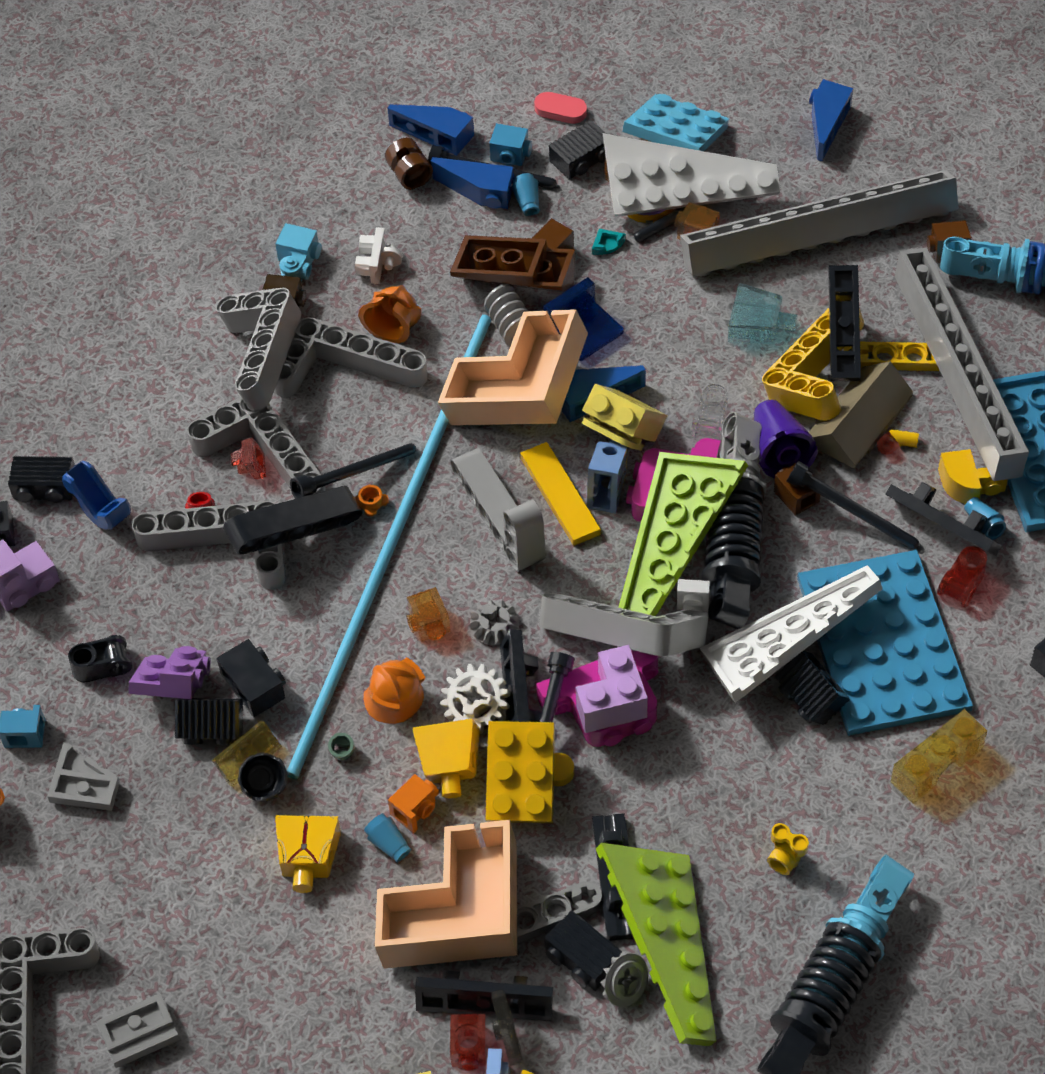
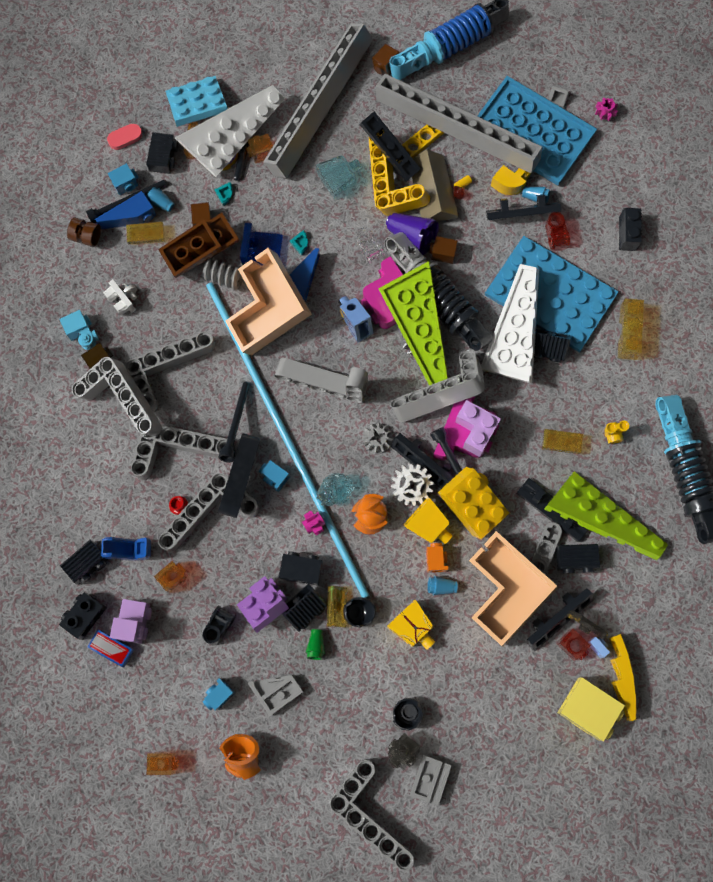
camera: 45 degrees left, 20 degrees up
(110, 566) = (163, 576): none -> clear orange brick
(141, 967) = (403, 752): none -> clear smoke brick
(177, 773) = (315, 647): none -> green cone
(193, 934) = (407, 714): none -> black hair
(250, 459) = (177, 460): clear red tile -> none
(320, 644) = (313, 523): none -> dark pink gear
(333, 562) = (274, 475): none -> dark azure brick
(341, 740) = (378, 566): sand green hinge -> none
(371, 492) = (256, 423): orange plate -> none
(381, 628) = (335, 489): none -> clear light blue hair
(390, 314) = (165, 323): orange helmet -> none
(428, 615) = (347, 462): clear orange brick -> none
(433, 125) = (75, 198): blue slope -> none
(473, 214) = (145, 233): none -> clear yellow plate
(560, 493) = (339, 346): yellow tile -> none
(622, 417) = (336, 283): light yellow brick -> none
(632, 987) = (609, 554): light grey gear -> none
(637, 353) = (300, 242): none -> teal tile
(693, 595) = (459, 347): white plate -> none
(711, 809) = (562, 441): none -> clear yellow plate
(803, 477) = (446, 244): black piece -> none
(829, 109) = (259, 34): blue slope -> none

